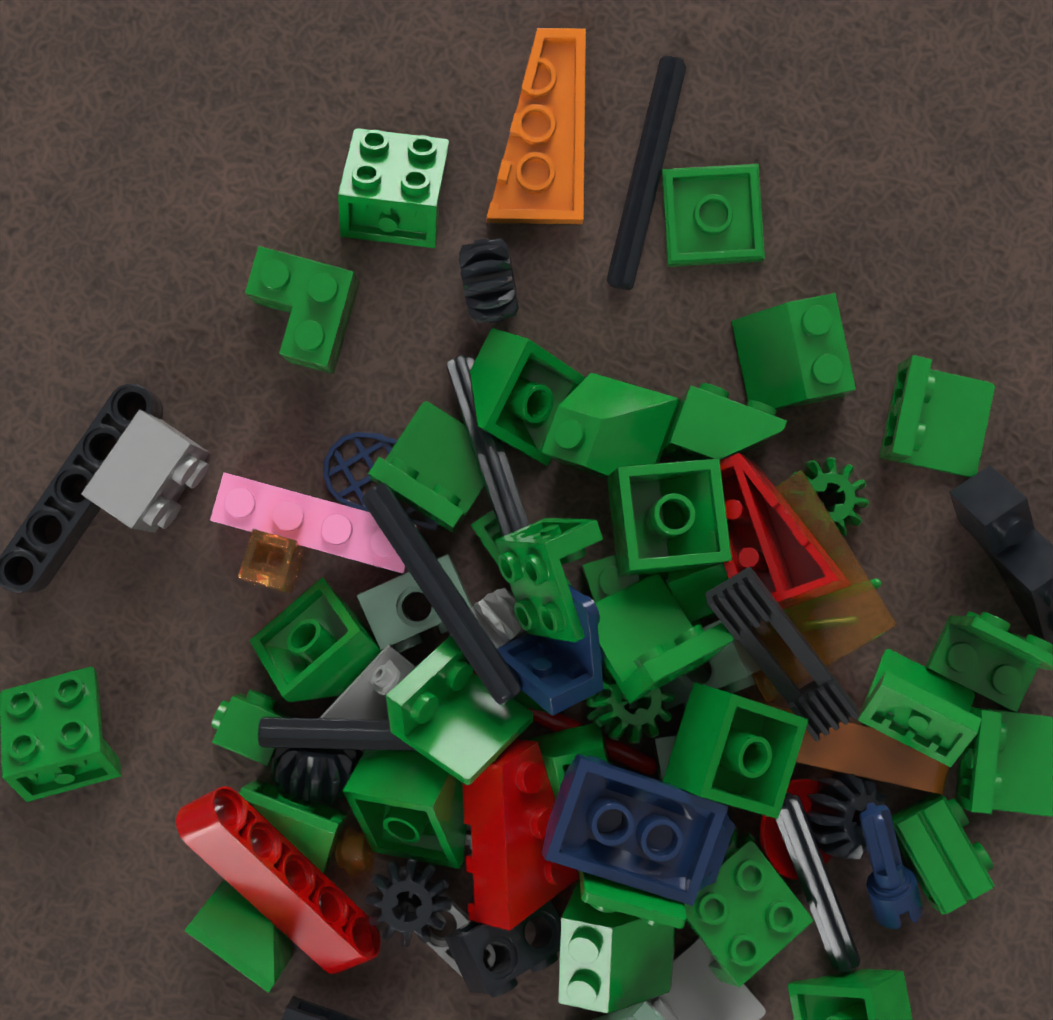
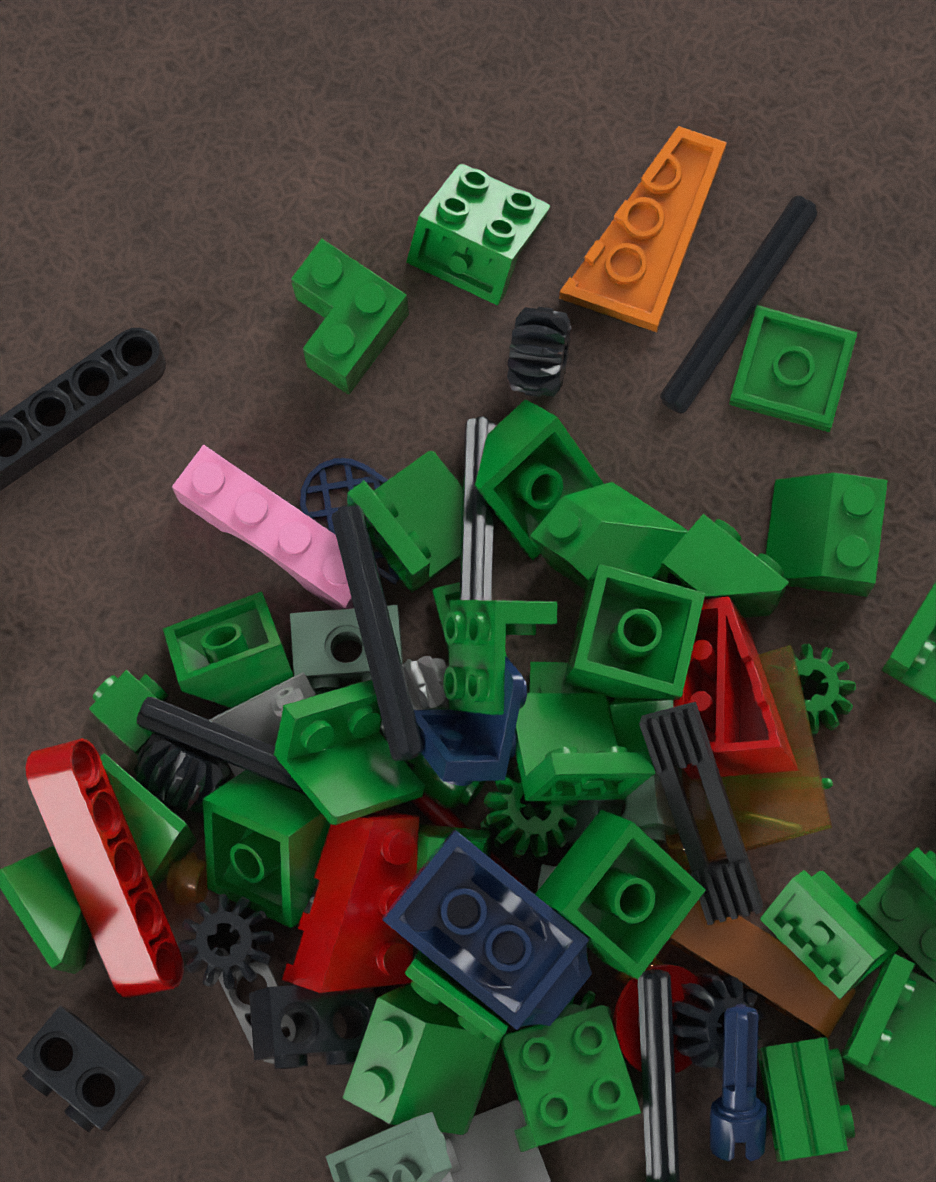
camera: 25 degrees right, 10 degrees down
(147, 474) = (128, 420): light grey brick -> none
(271, 561) = (218, 549): clear orange leg -> none

